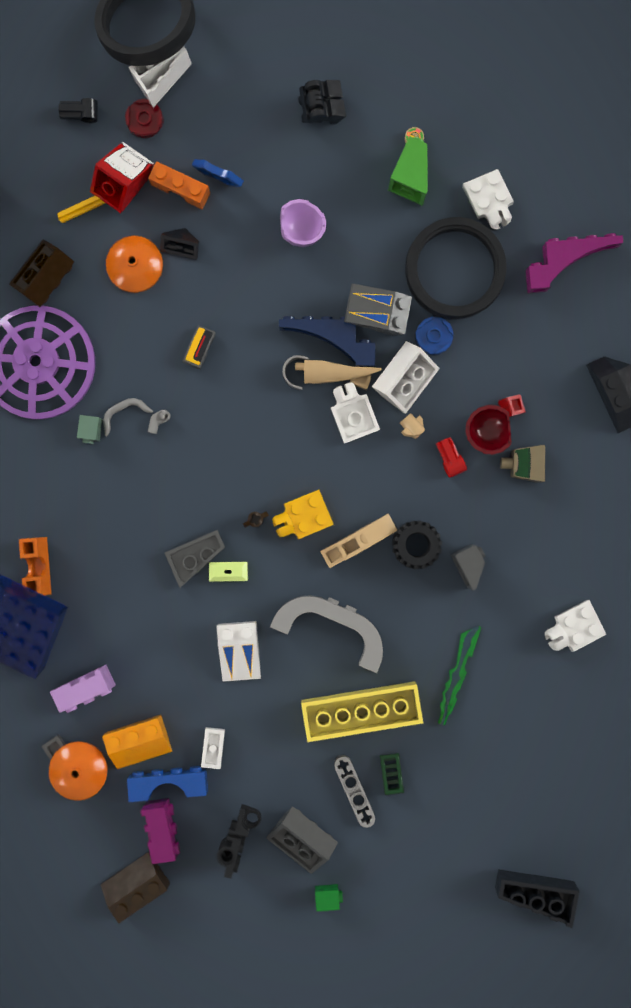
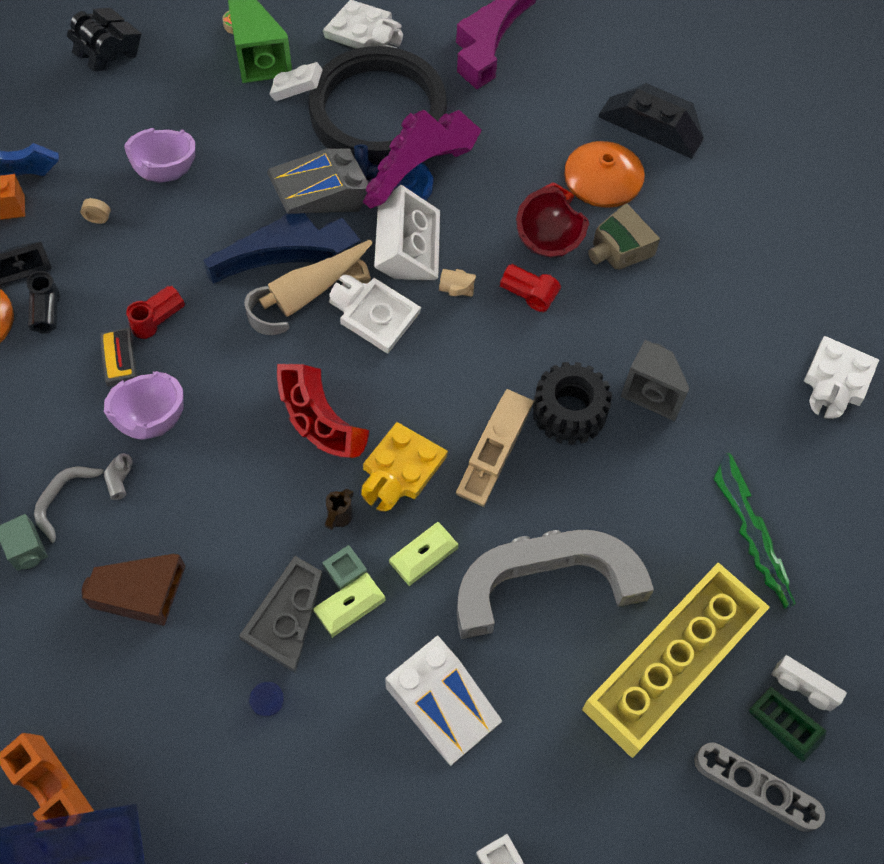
camera: 40 degrees left, 25 degrees down
(130, 493) = (136, 588): none -> reddish brown slope
(158, 591) = (266, 699): none -> clear blue plate
(177, 286) = (42, 303): none -> black piece
(193, 392) = (145, 405): none -> lavender cylinder
(237, 330) = (146, 315): none -> red piece
(237, 552) = (344, 567): none -> sand green plate
(241, 237) = (95, 211): none -> tan tile
(272, 573) = (412, 564): none -> yellowish green piece
(279, 457) = (311, 414): none -> red brick
(416, 219) = (296, 81): none -> white plate
(416, 310) = (361, 155): none -> dark blue arm
(417, 774) = (818, 690): none -> white plate
(450, 324) = (419, 140): none -> magenta arch
(543, 411) = (604, 174): none -> orange dish

